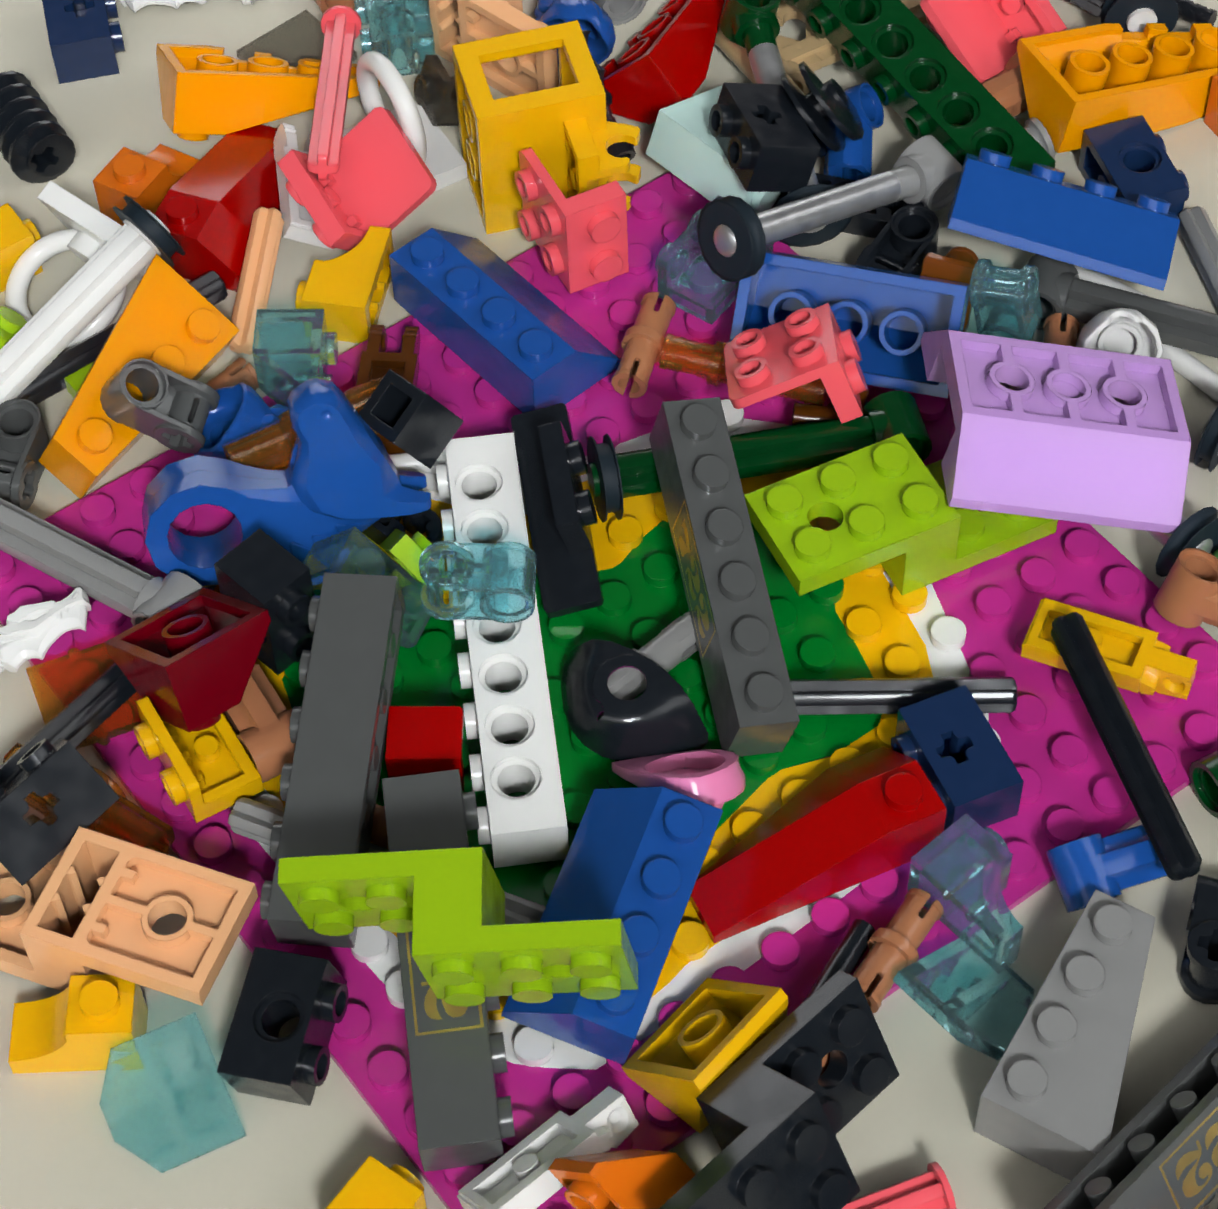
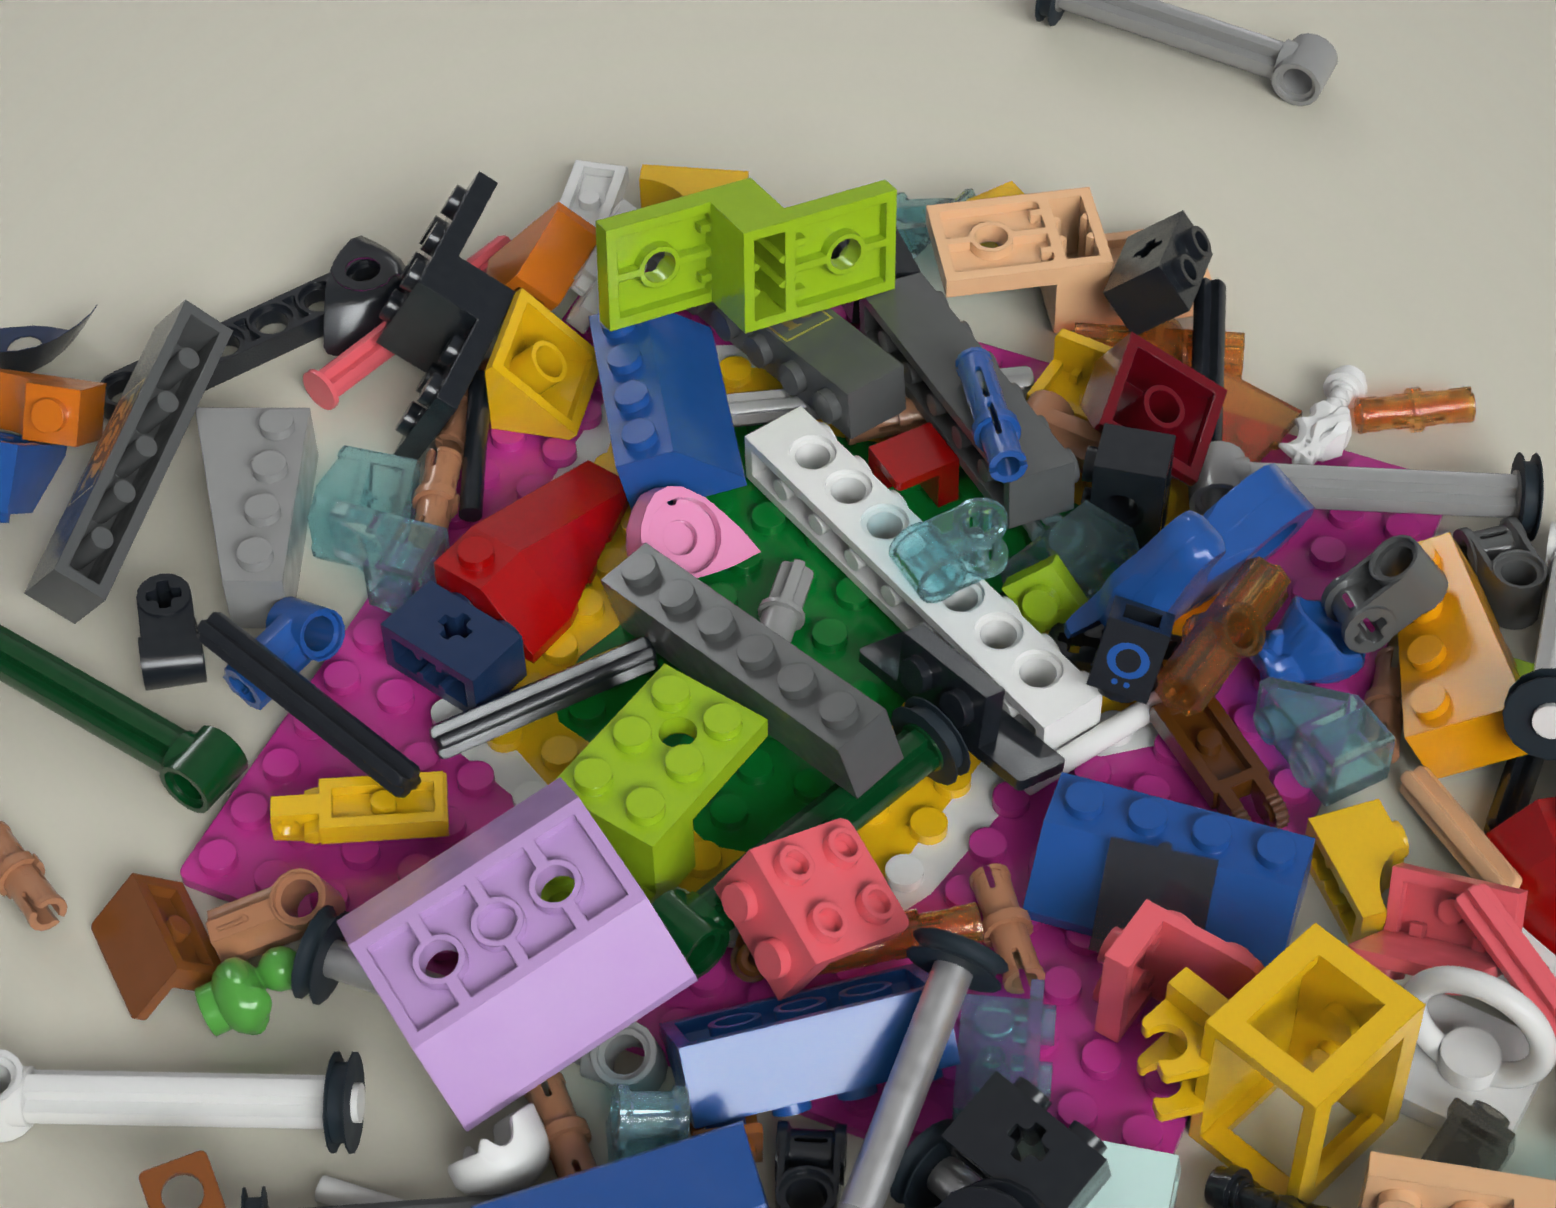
camera: 150 degrees right, 5 degrees down
(373, 615) = (1001, 449): none -> blue pin
(533, 289) = (1154, 873): none -> clear smoke piece
(650, 725) = (807, 572): black piece -> none

